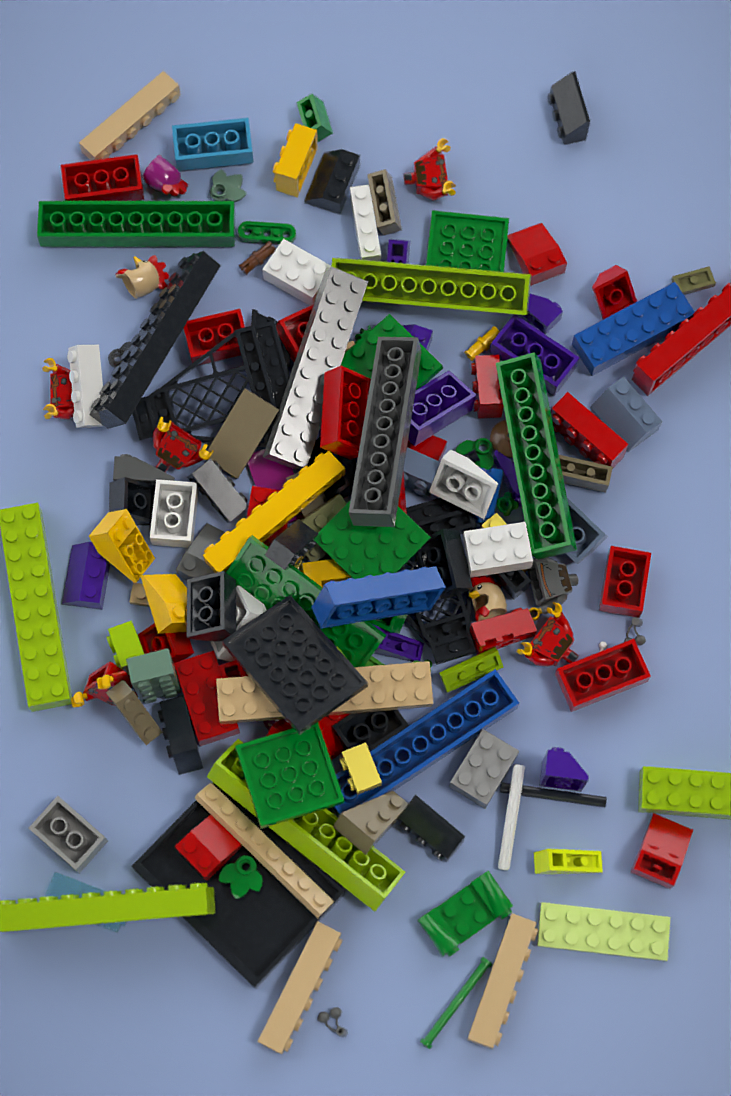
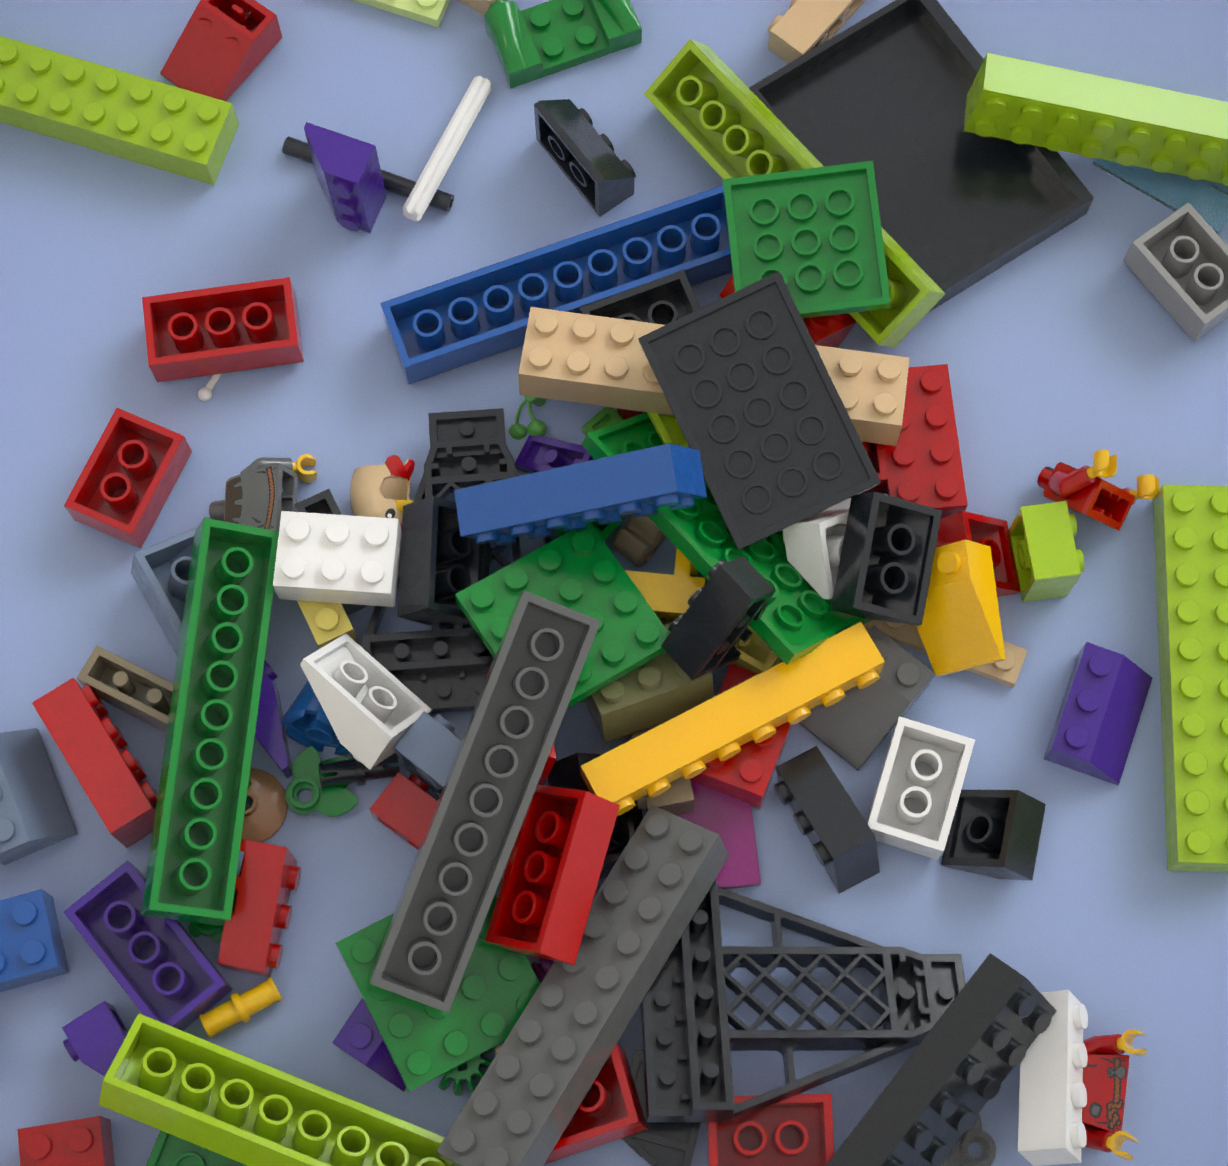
camera: 165 degrees left, 0 degrees up
(122, 544) = (1029, 739): yellow slope -> none
(134, 712) = (1052, 428): dark tan brick -> none
(136, 469) = (975, 892): dark grey slope -> none
(154, 676) = (1012, 466): sand green brick -> none
(177, 447) = (887, 914): torso -> none
(180, 735) = (978, 392): black wedge -> none
(208, 847) = (951, 197): red slope -> none
(241, 879) = (915, 139): green plate -> none
(242, 432) = (760, 913): dark tan tile -> none
(264, 850) = (853, 144): tan plate -> none
(360, 768) = (680, 244): light yellow brick -> none
(371, 820) = (680, 166): dark tan wedge -> none
(438, 406) = (362, 878): dark purple brick -> none
(471, 669) = (445, 395): lime plate -> none
(483, 768) = (471, 226): light grey brick -> none
(501, 504) = (290, 673): green plate -> none
(502, 630) = (353, 443): red wedge -> none
(552, 641) = (293, 406): torso -> none
(567, 861) = (382, 64): neon yellow slope -> none
(640, 640) = (139, 387): dark grey piece -> none

